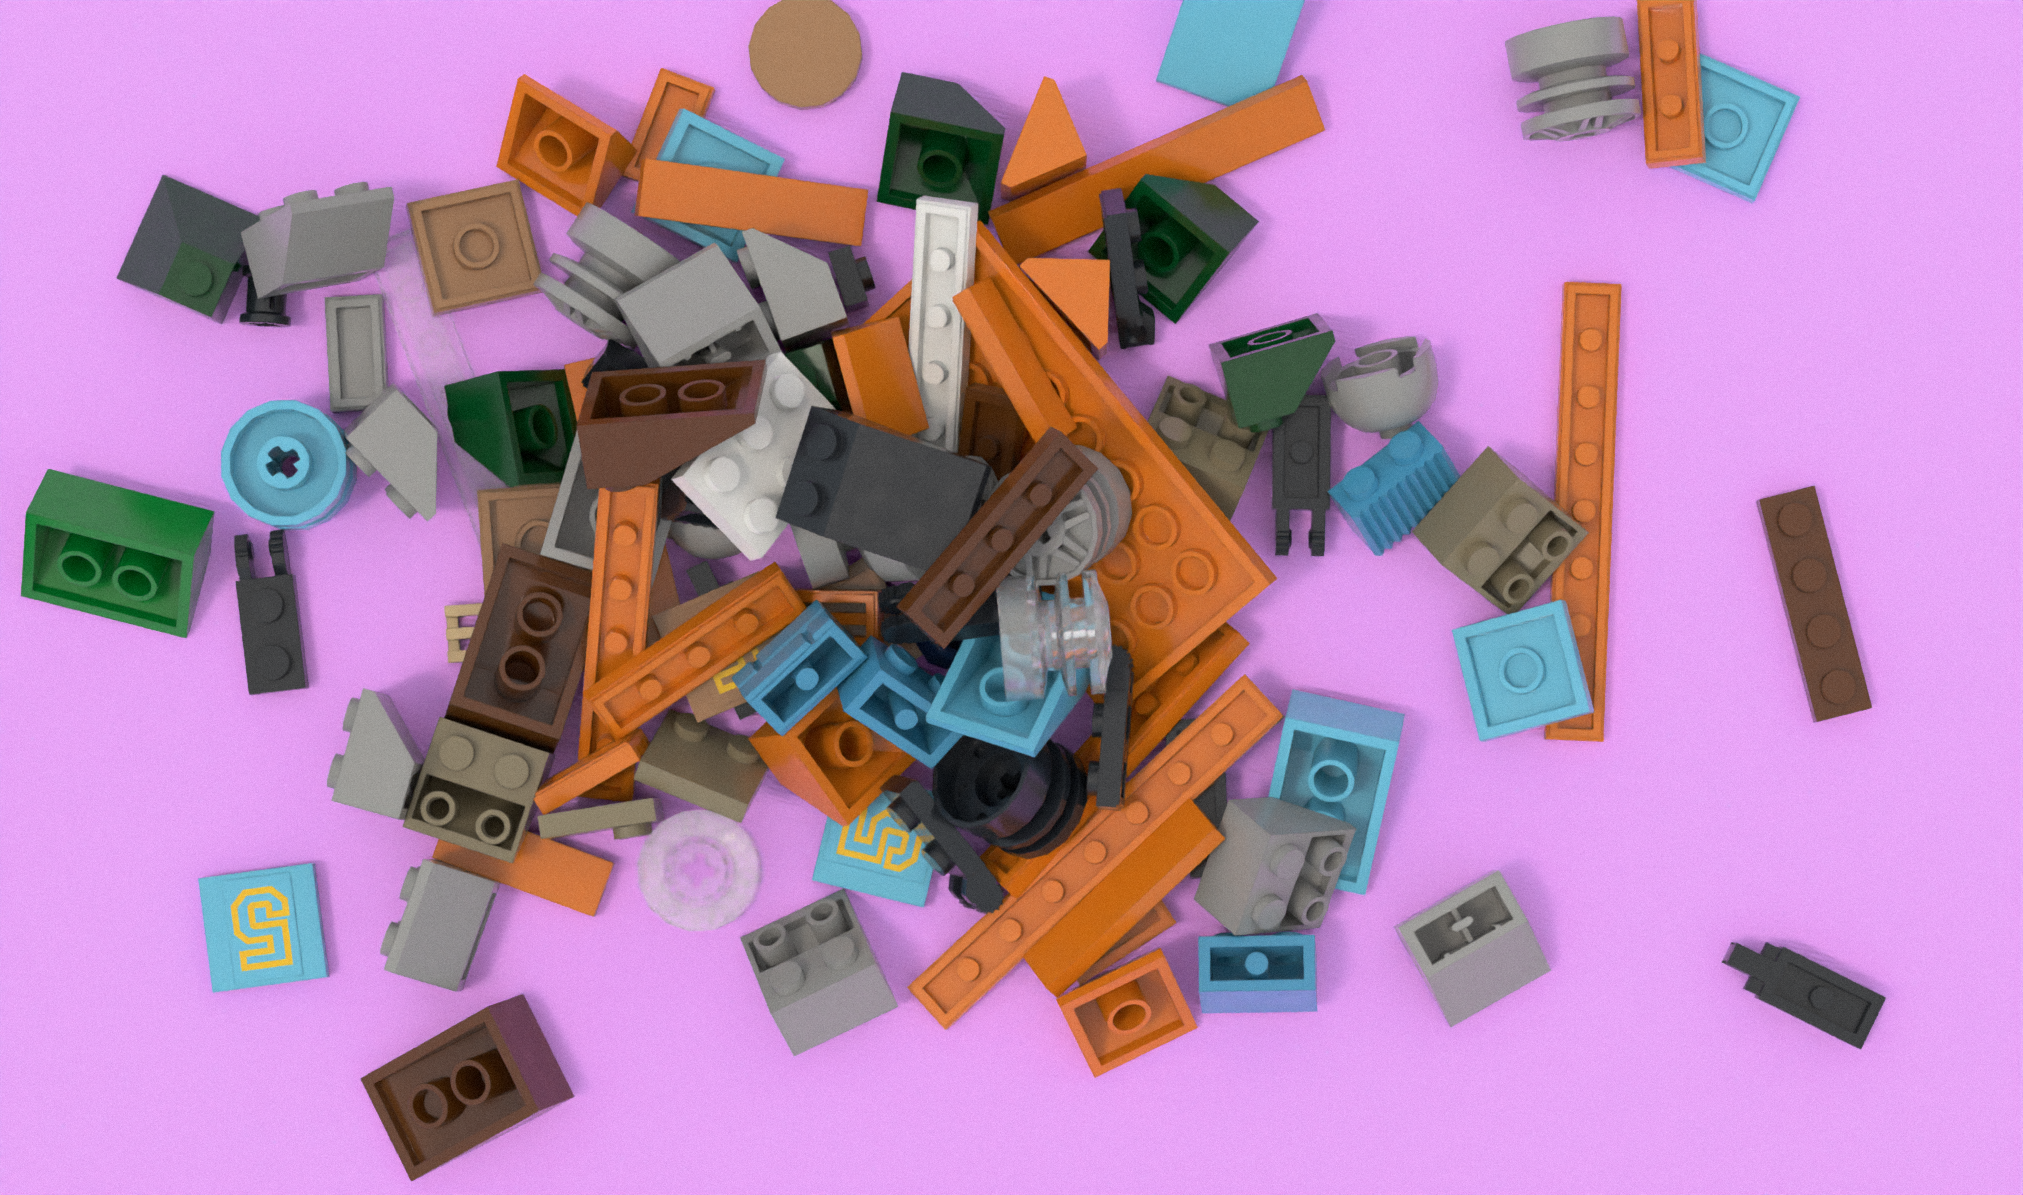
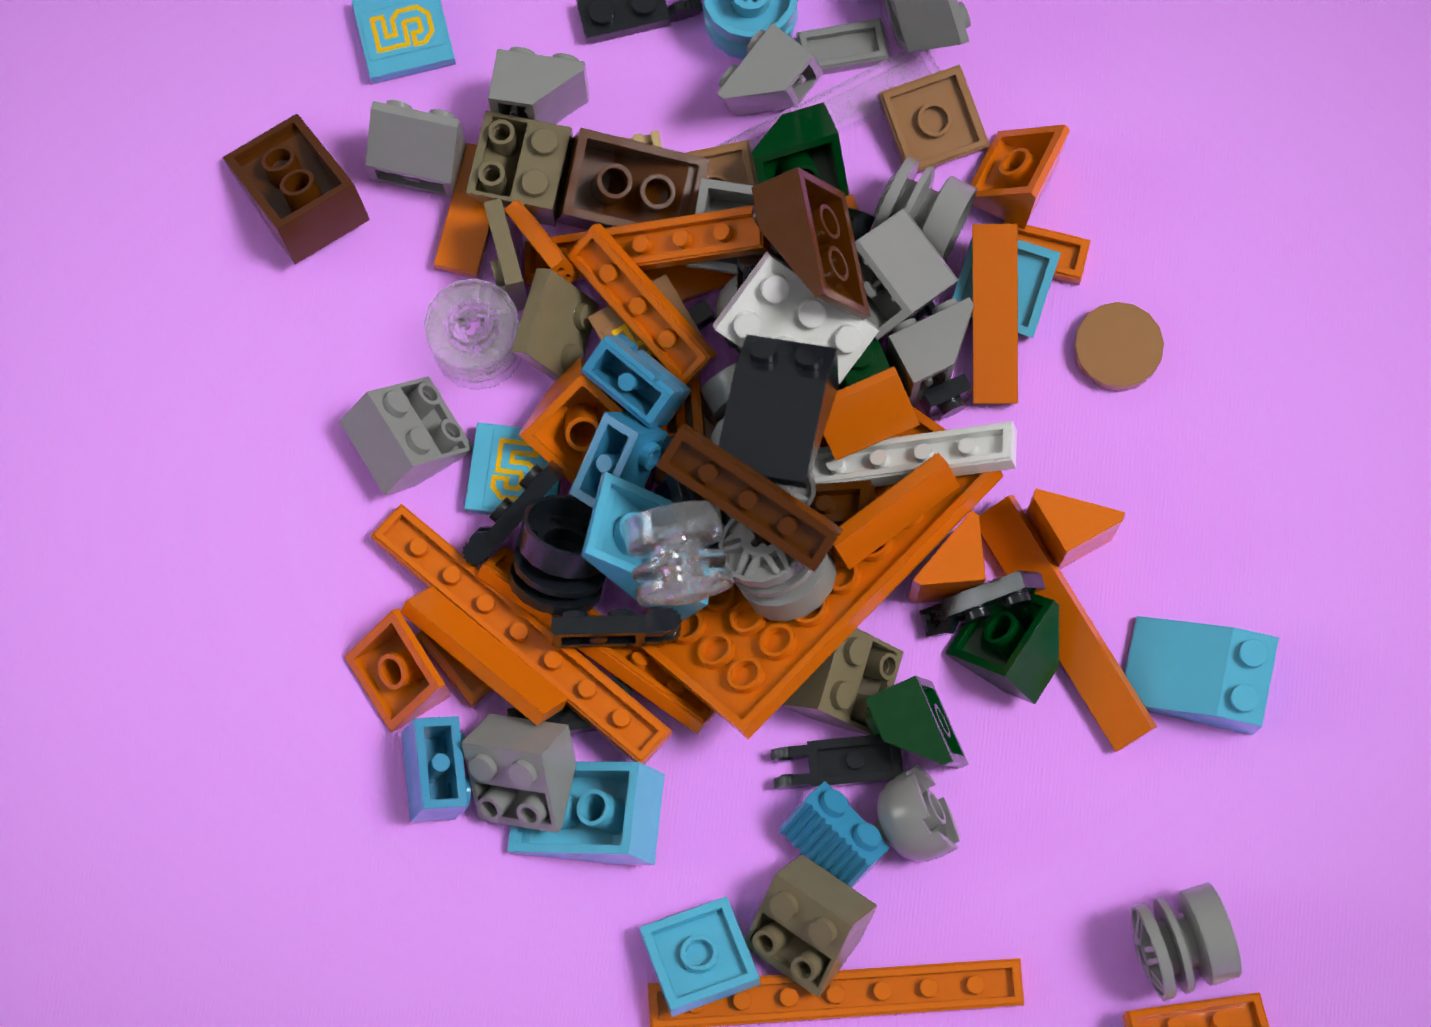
camera: 80 degrees right, 10 degrees down
(939, 146) = (1059, 449): dark green slope -> none
(1473, 947) = (471, 939): light grey slope -> none

